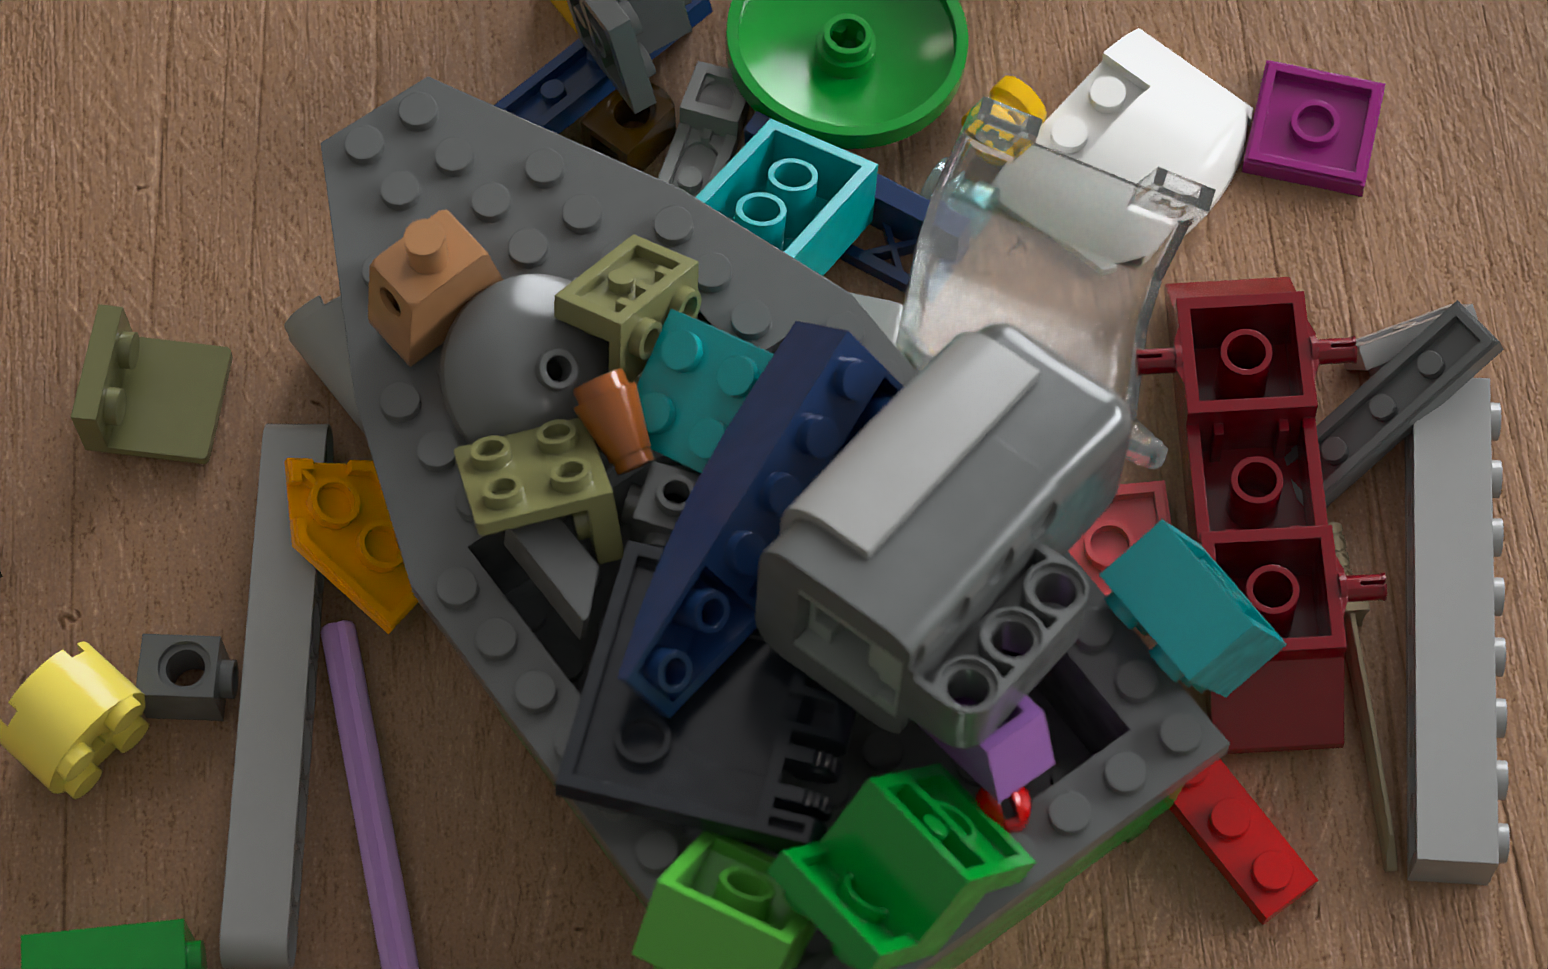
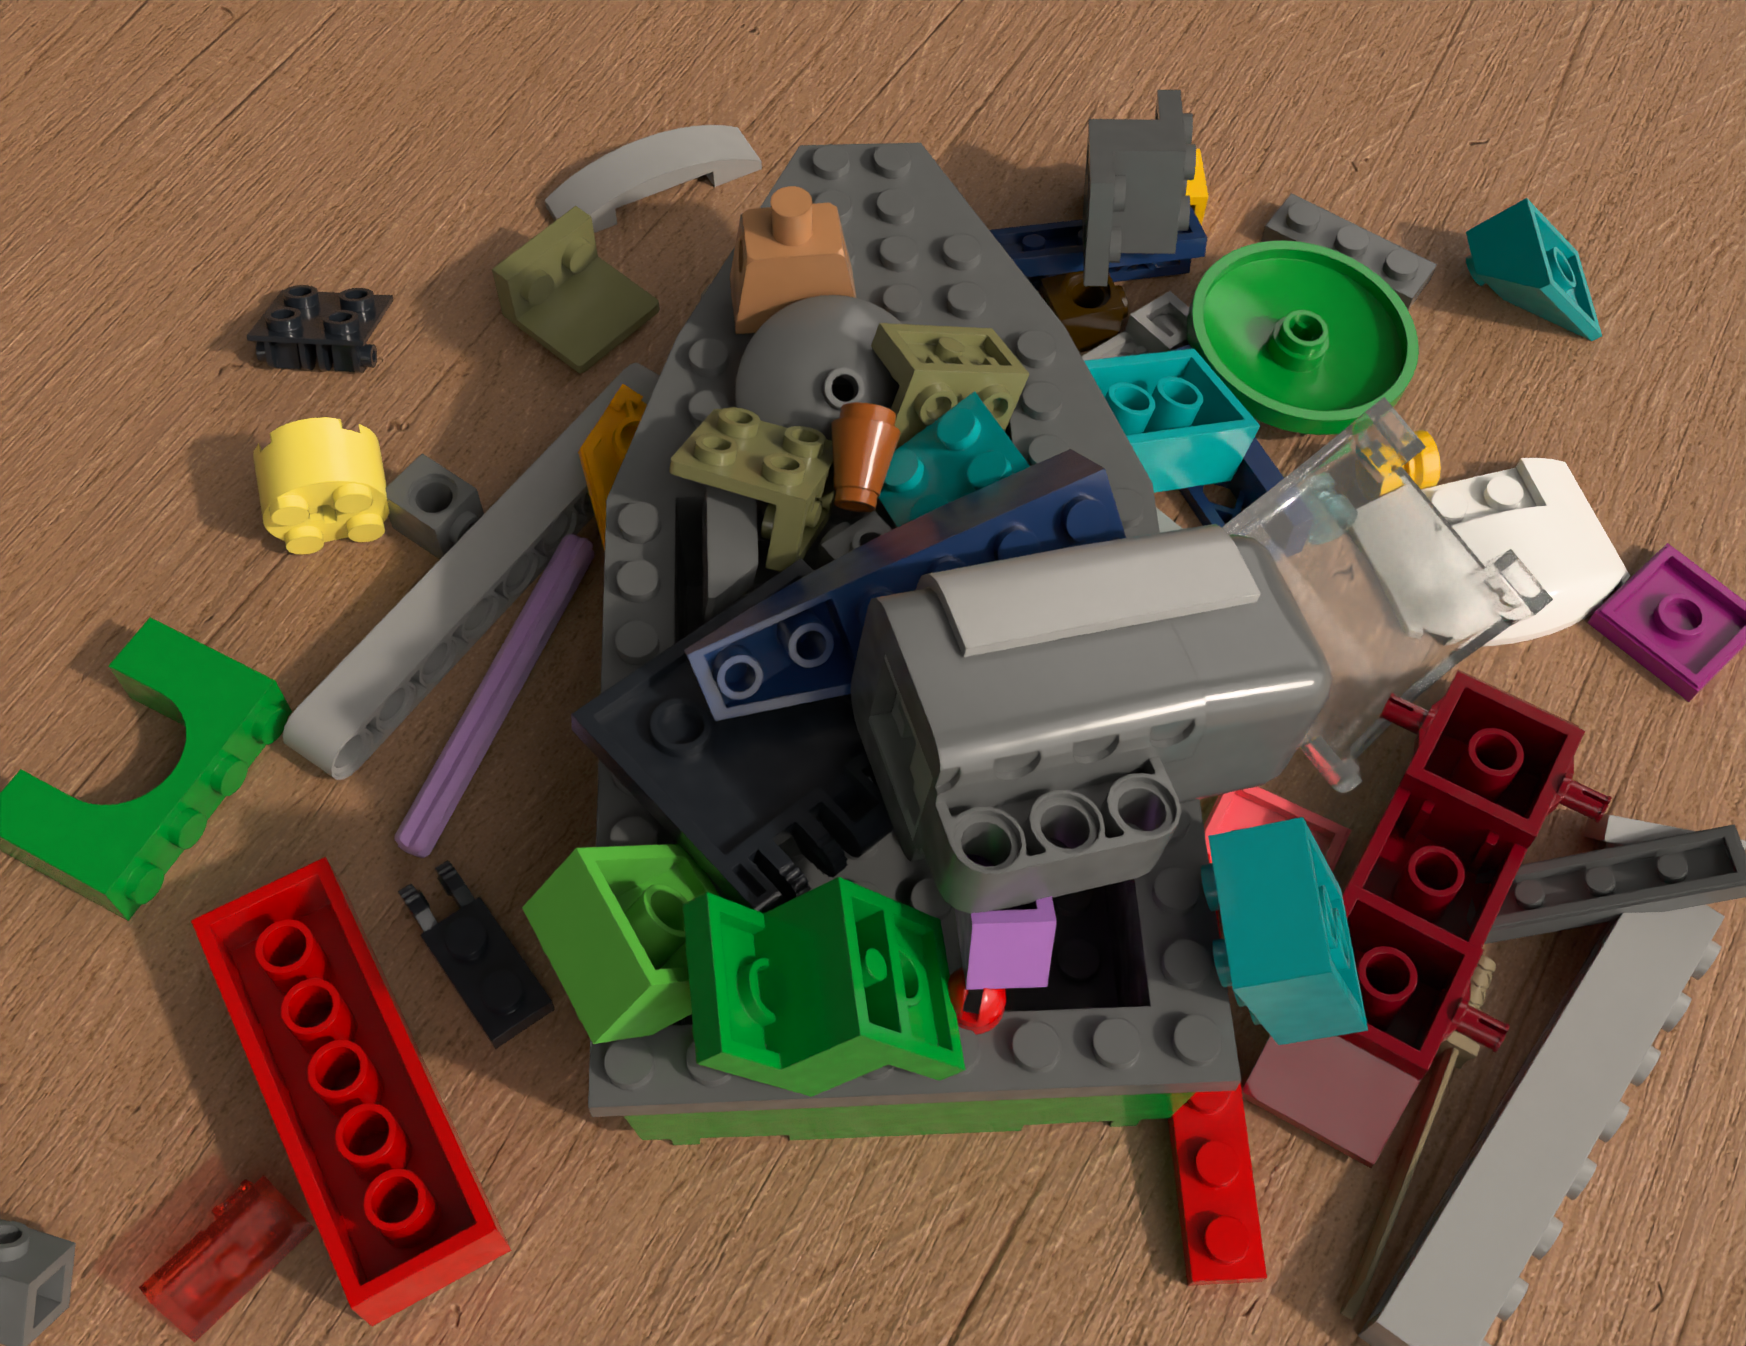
camera: 30 degrees right, 5 degrees down
(113, 219) = (652, 167): none -> light grey slope

